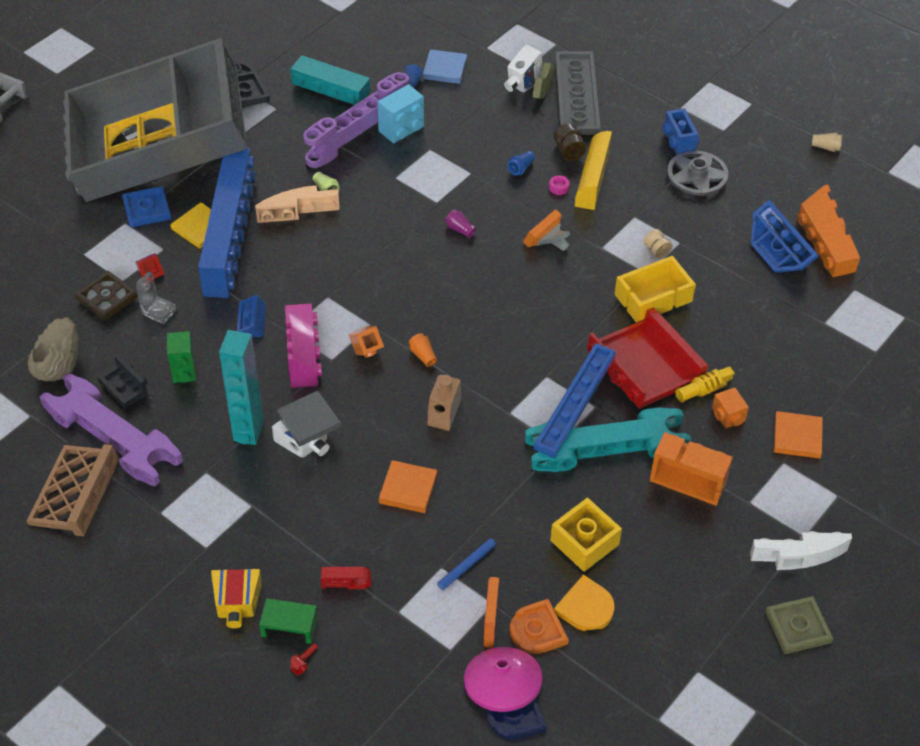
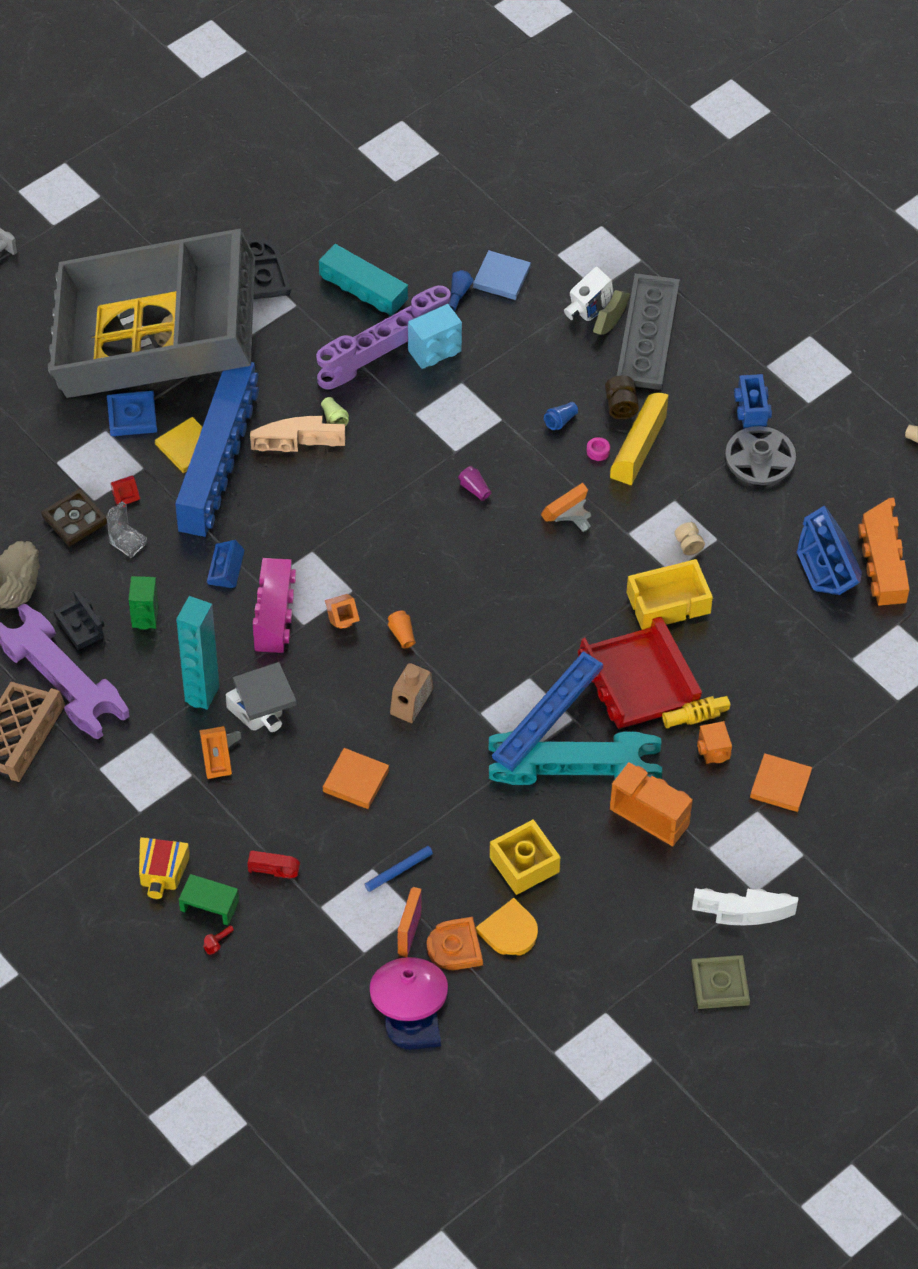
camera: 10 degrees right, 5 degrees up
(272, 480) = (215, 750): none -> orange piece

